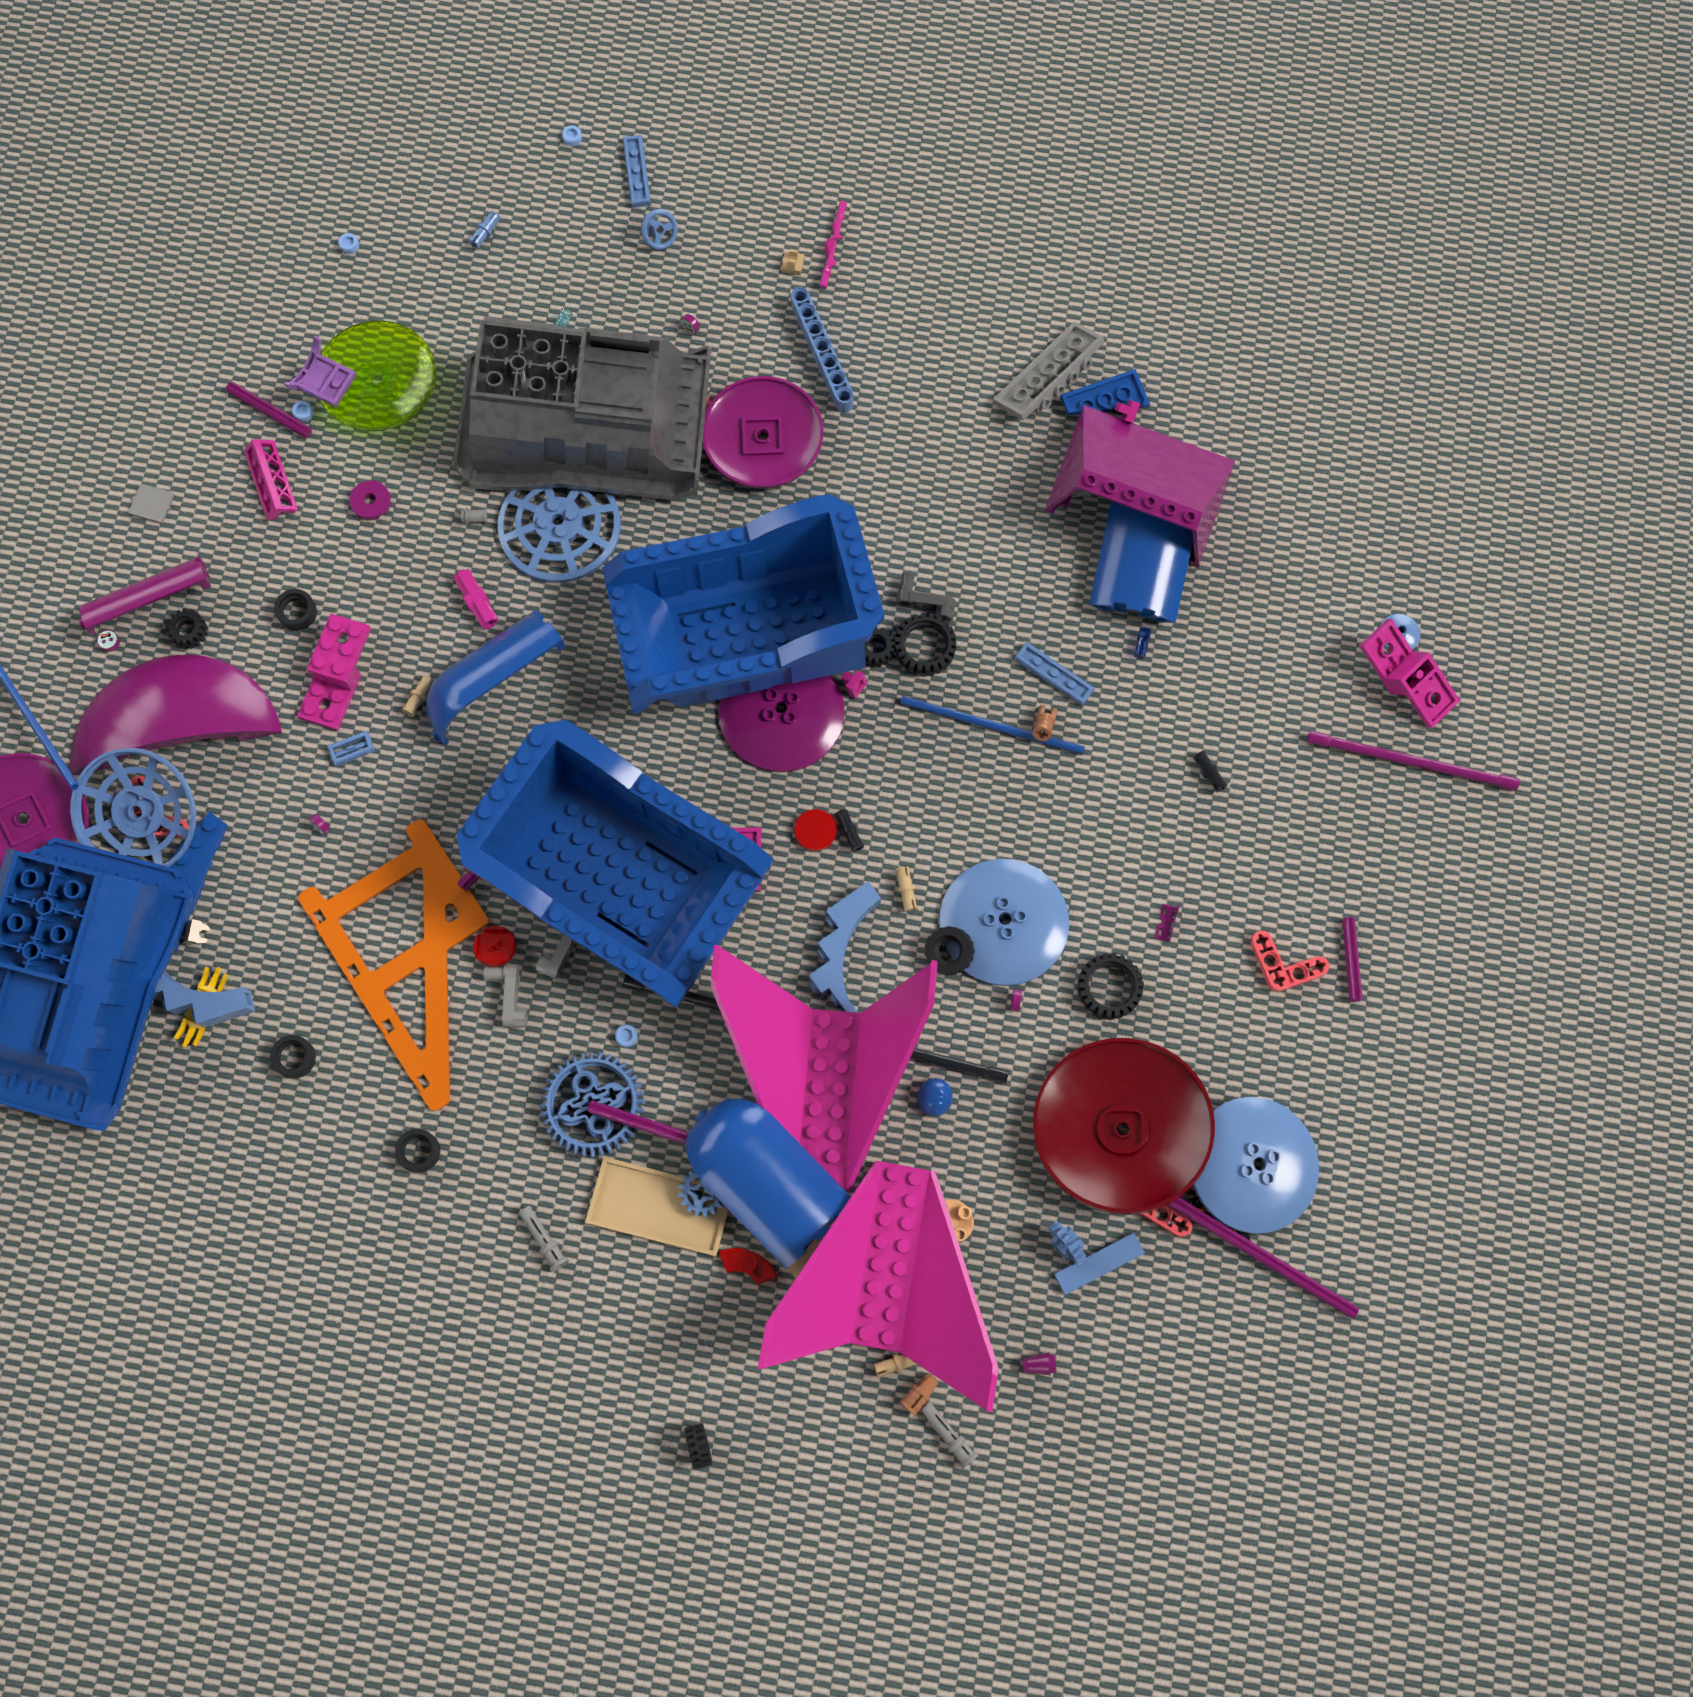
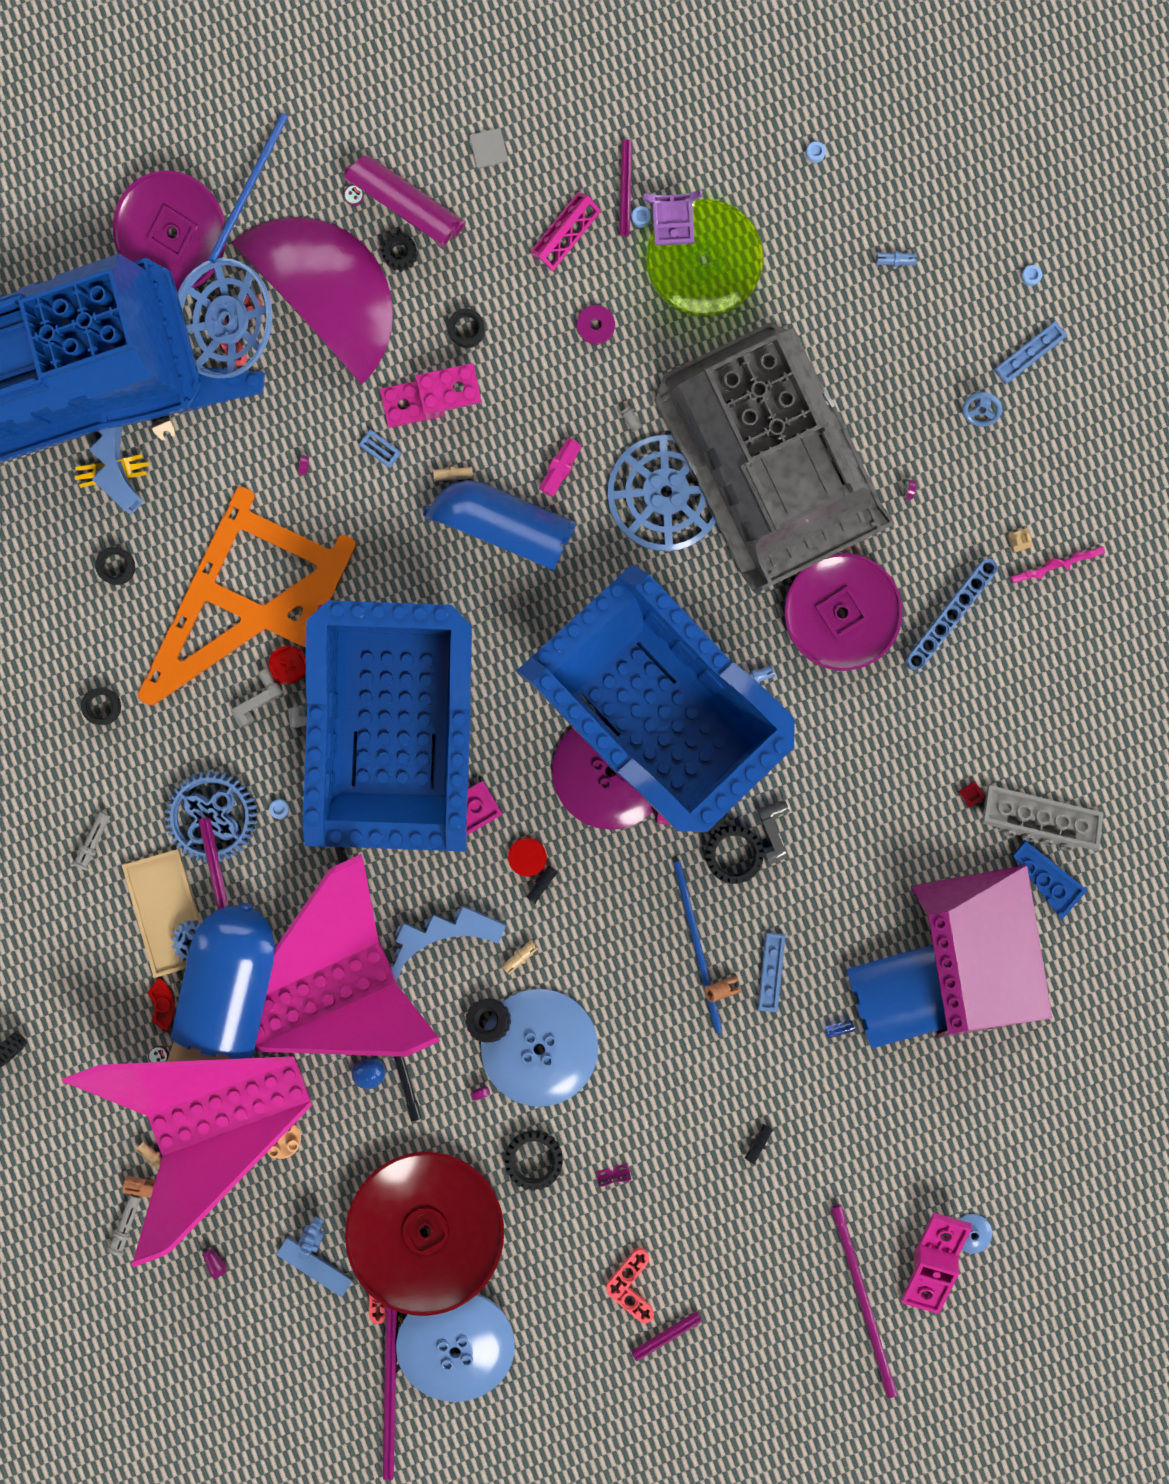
camera: 60 degrees right, 15 degrees up
(563, 318) = (848, 380): clear light blue pin -> none
(992, 419) = (971, 794): none -> dark red tile
(1129, 410) = (1043, 905): dark pink tile -> none

